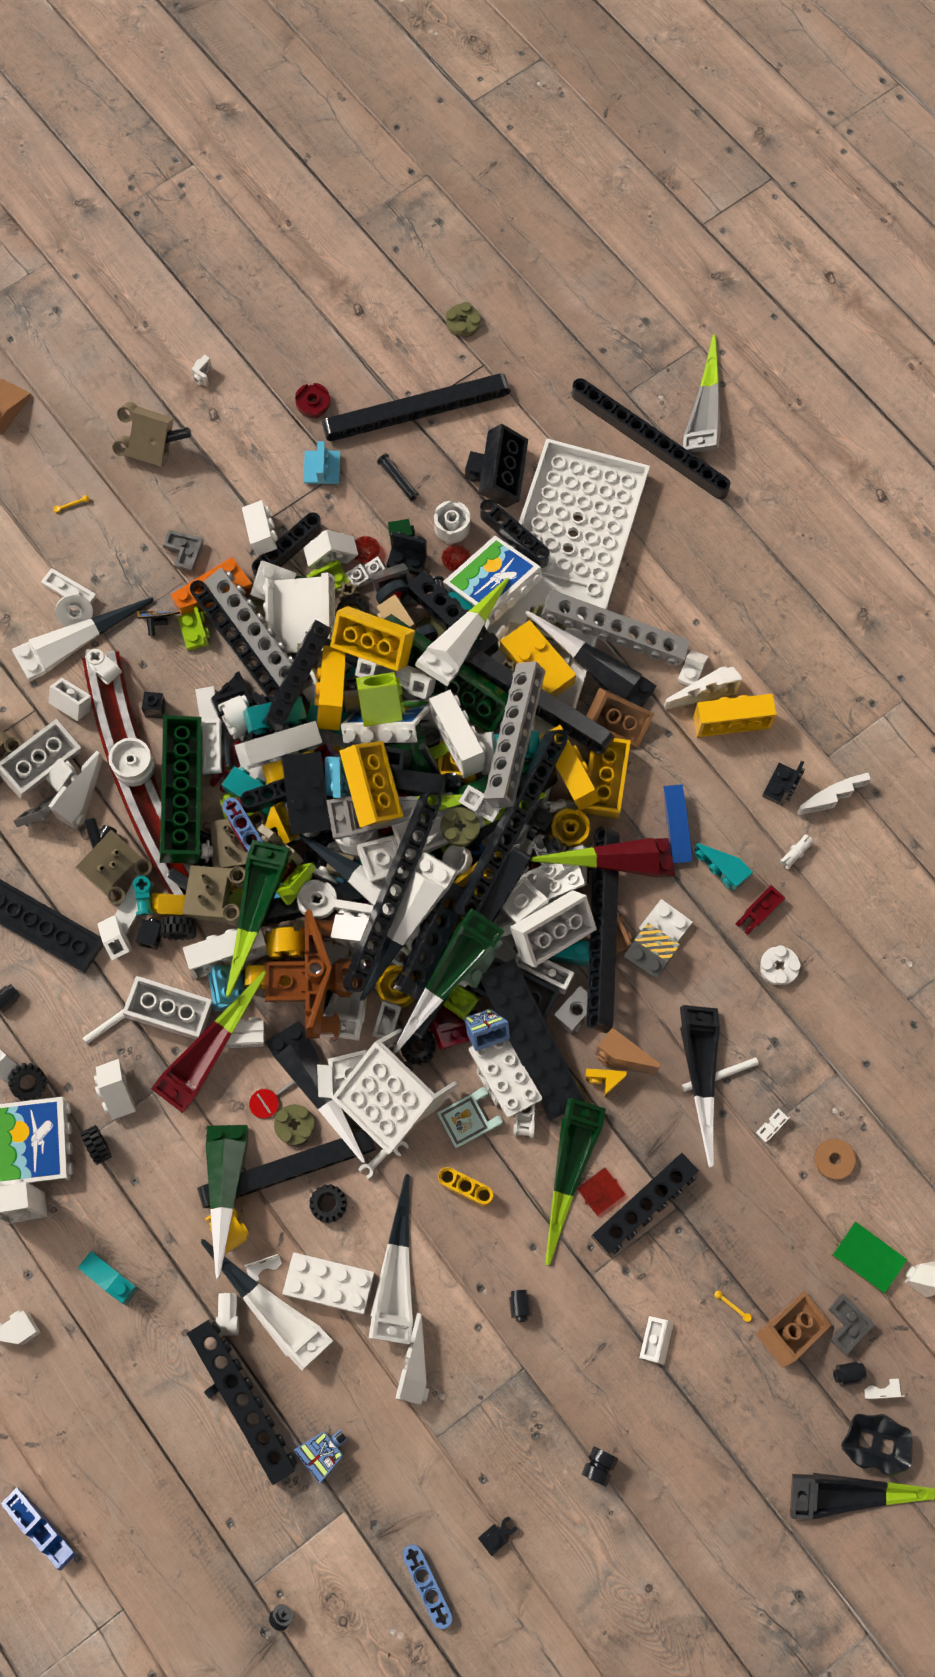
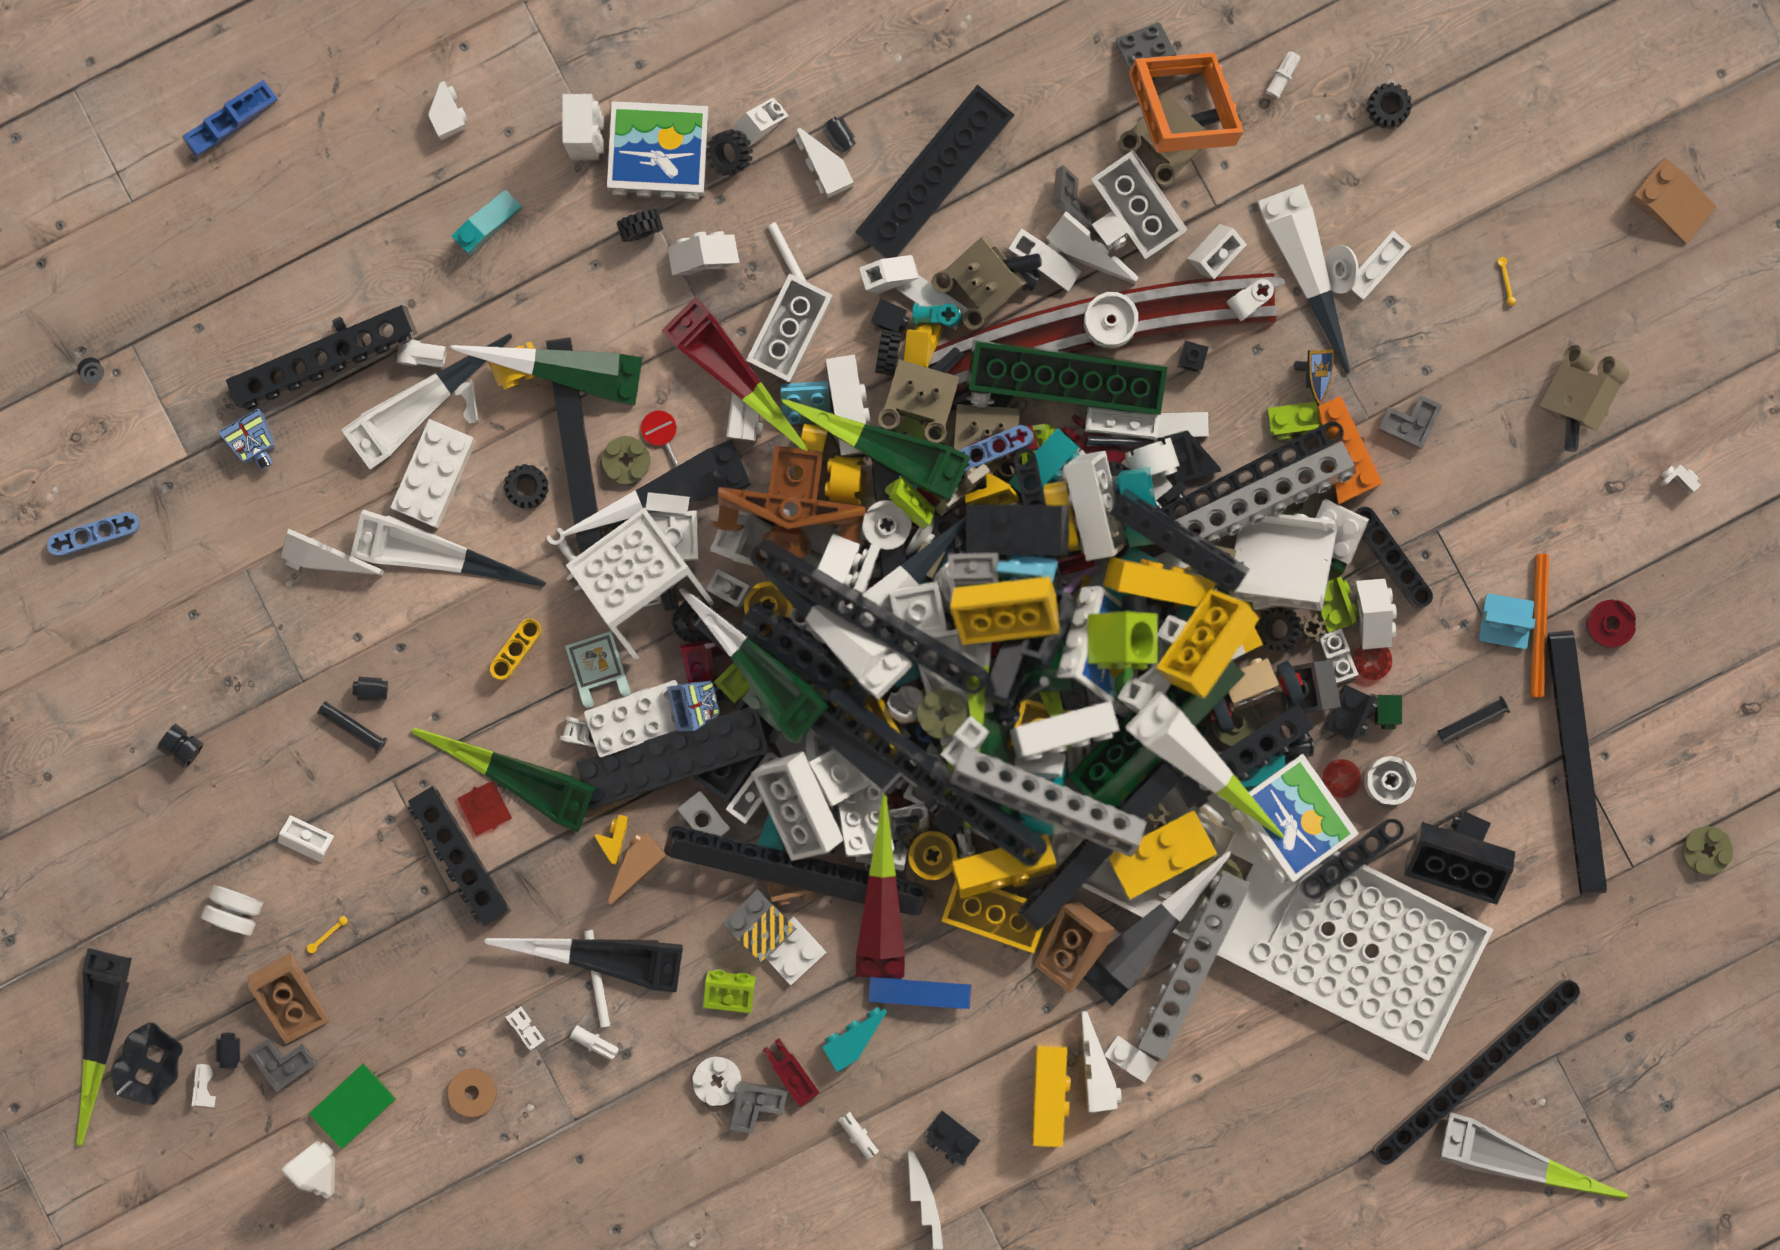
camera: 100 degrees right, 15 degrees up
(31, 1003) = (829, 168): none -> white slope
(79, 837) = (1053, 265): none -> white slope
(260, 527) = (1420, 525): white brick -> none
(332, 444) = (1540, 627): none -> orange axle
(494, 1538) = (128, 616): black plate -> none
(555, 1316) = (352, 727): none -> black pin
(707, 967) = (729, 991): none -> lime bracket
(732, 1390) = (231, 912): none -> white wheel
(772, 1066) = (594, 1043): none -> white axle
(788, 935) = (750, 1100): none -> flat silver plate

